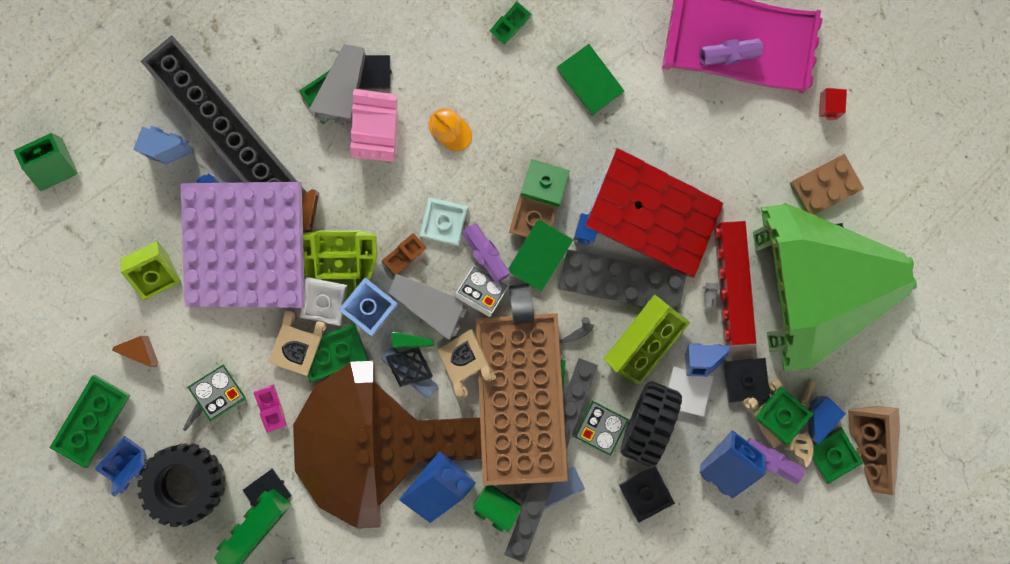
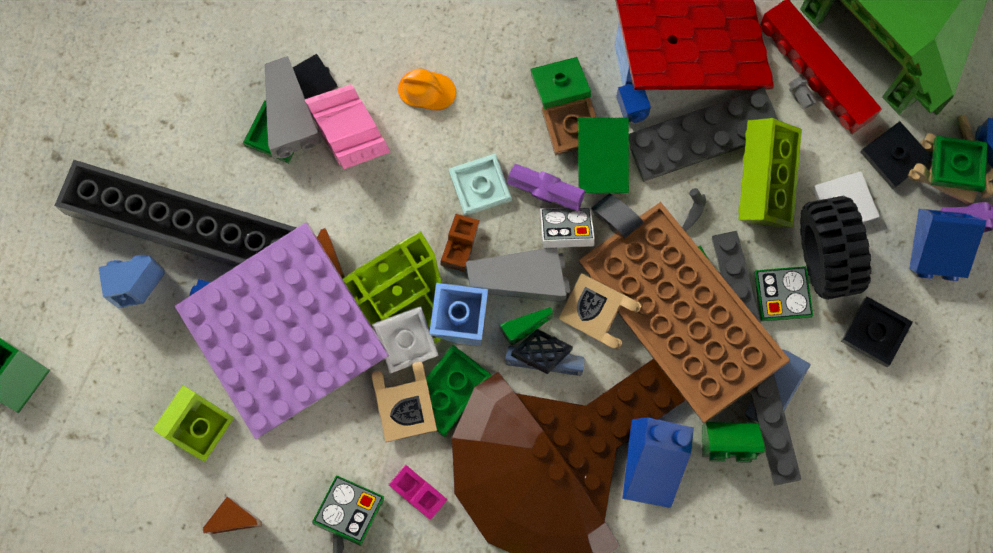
camera: 25 degrees left, 10 degrees down
(704, 359) = (839, 158): slope -> none

